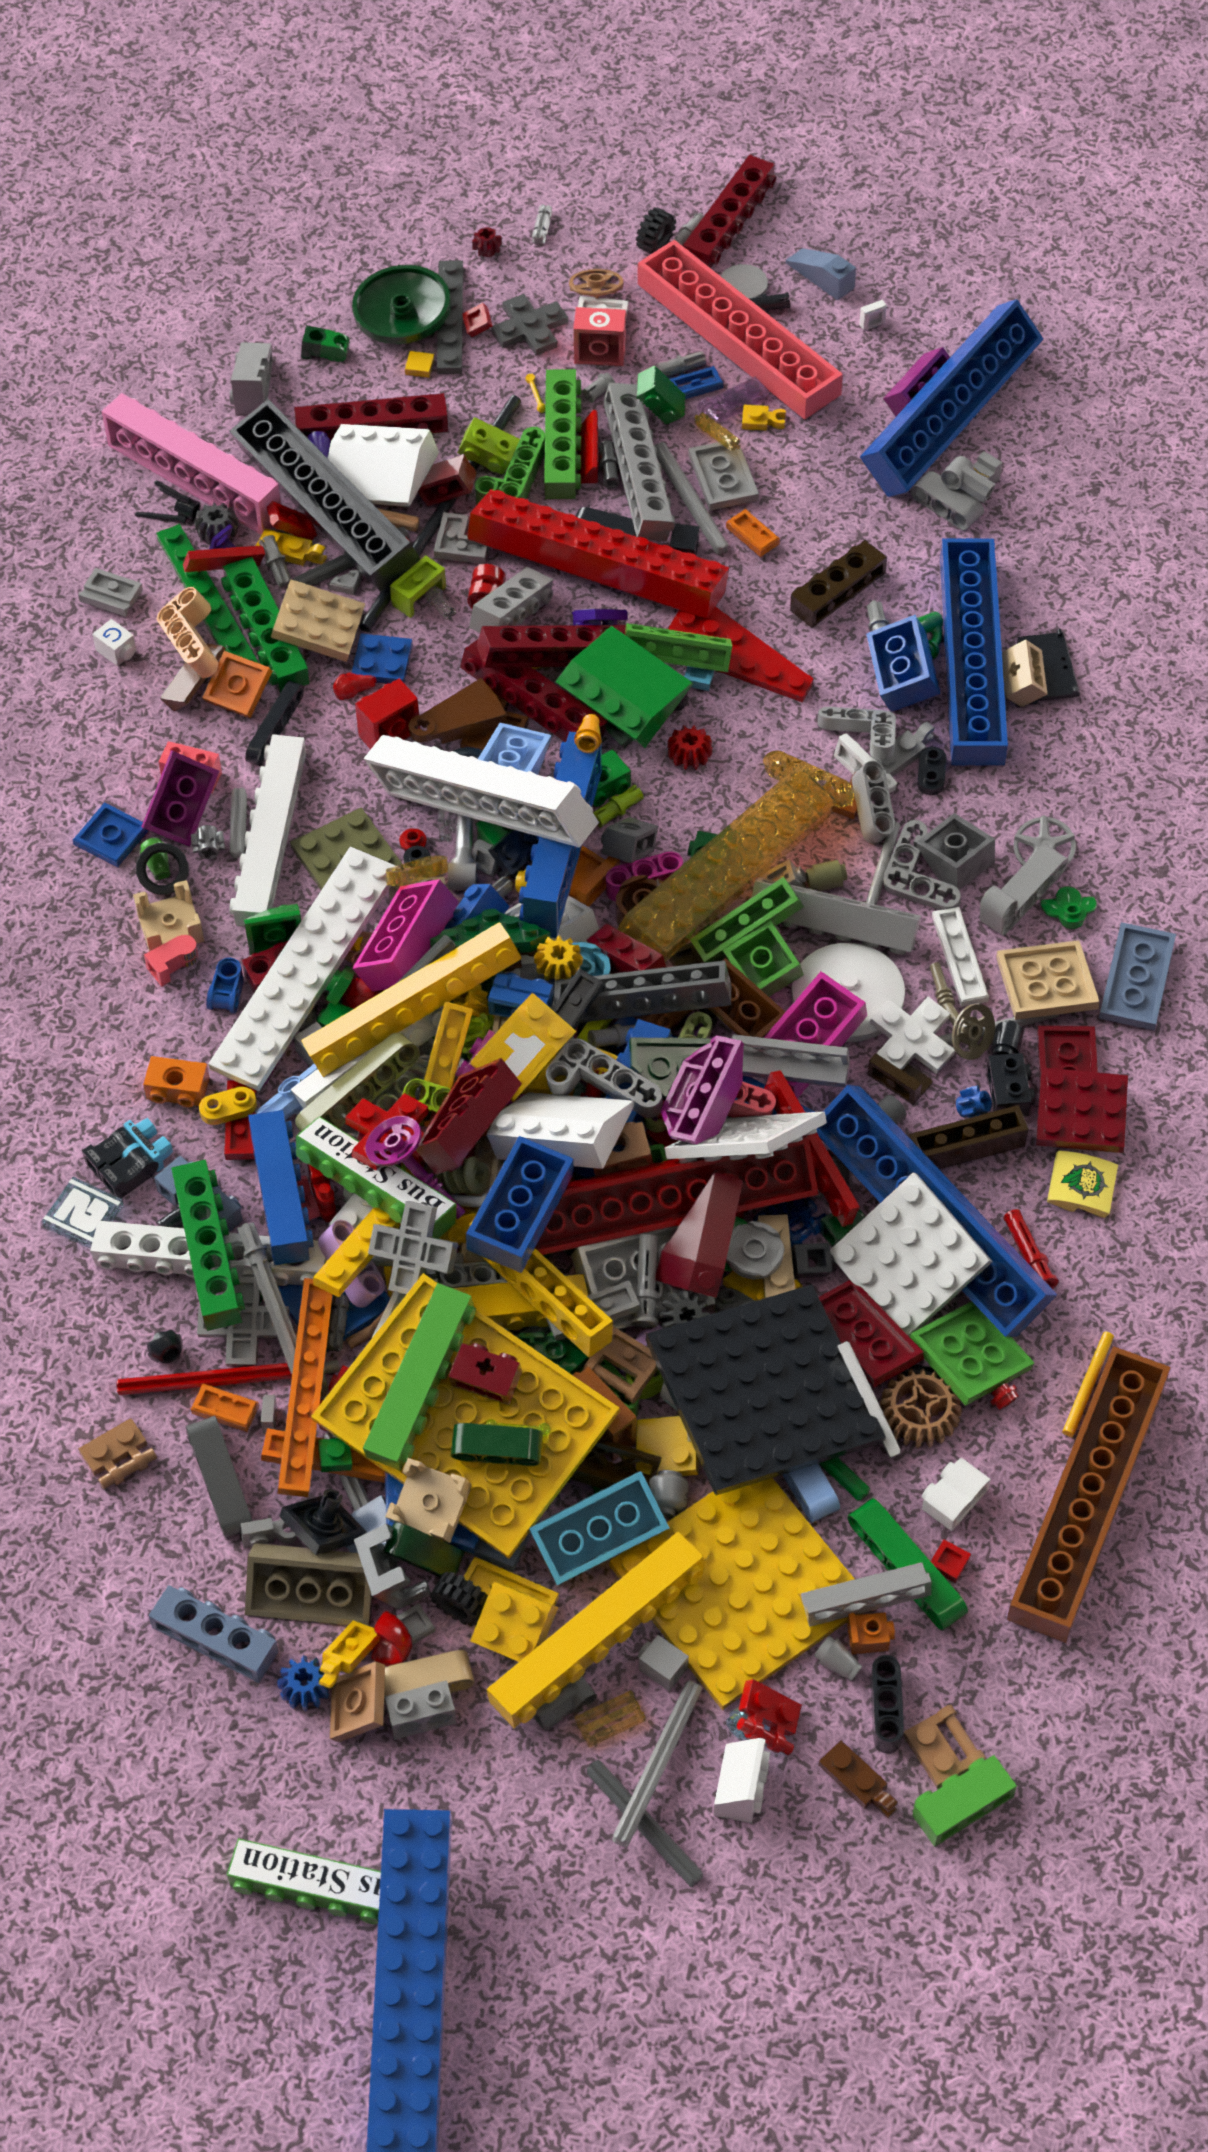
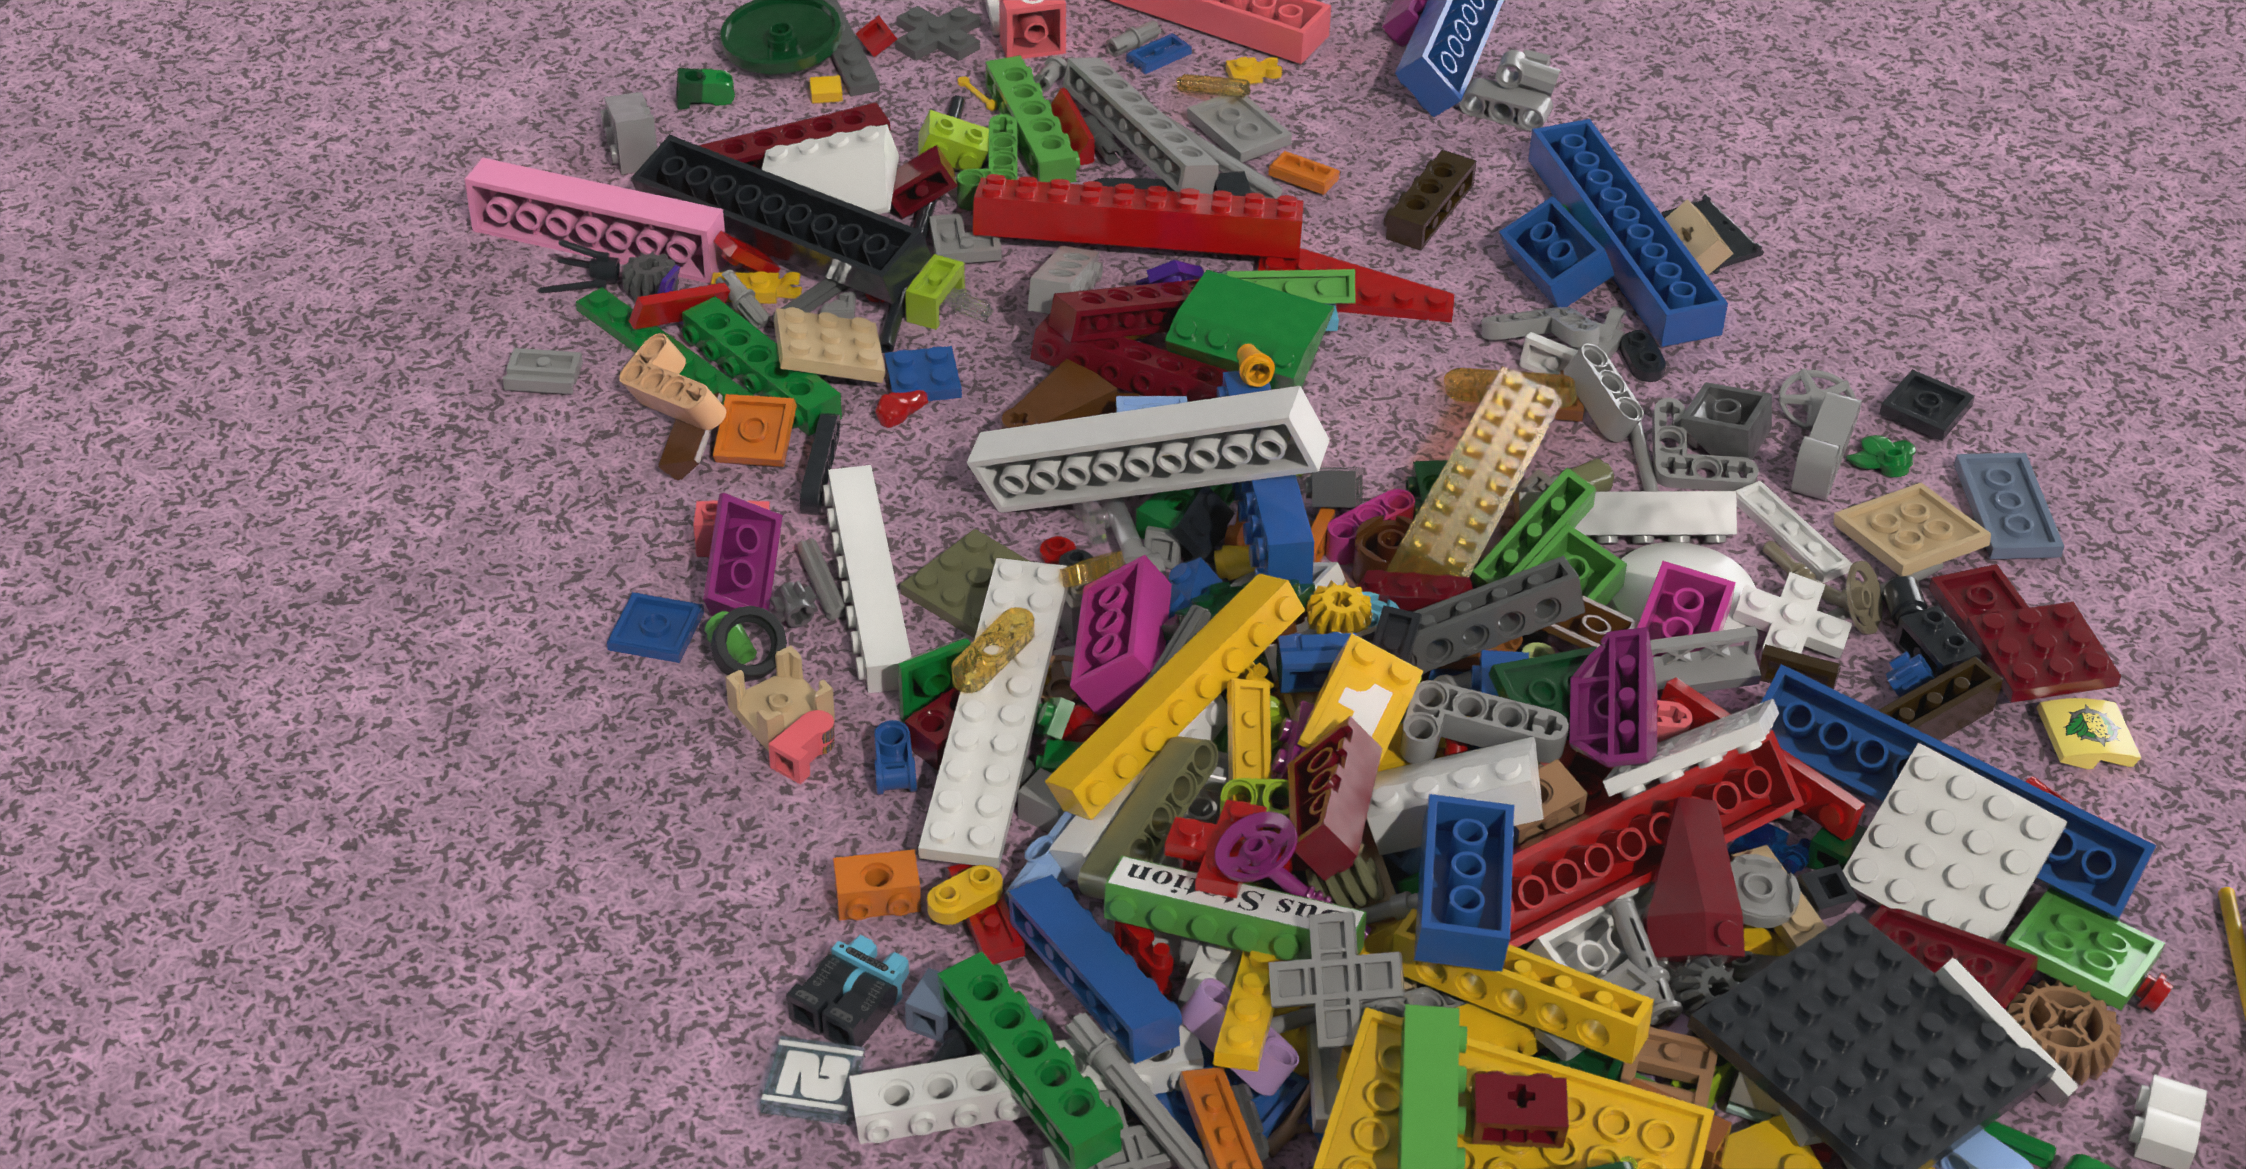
camera: 20 degrees left, 15 degrees down
(114, 642) = (572, 419): white brick -> none
(316, 913) = (988, 664): none -> clear yellow beam
(386, 713) = (960, 415): red brick -> none
(484, 581) = (1014, 273): red wheel -> none
(660, 395) = (1132, 61): green brick -> none
(689, 747) = (1350, 386): red gear -> none
(732, 400) = (1212, 58): clear purple plate -> none
(876, 616) = (1492, 223): light grey axle -> none
(1127, 870) = (1927, 405): none -> black plate

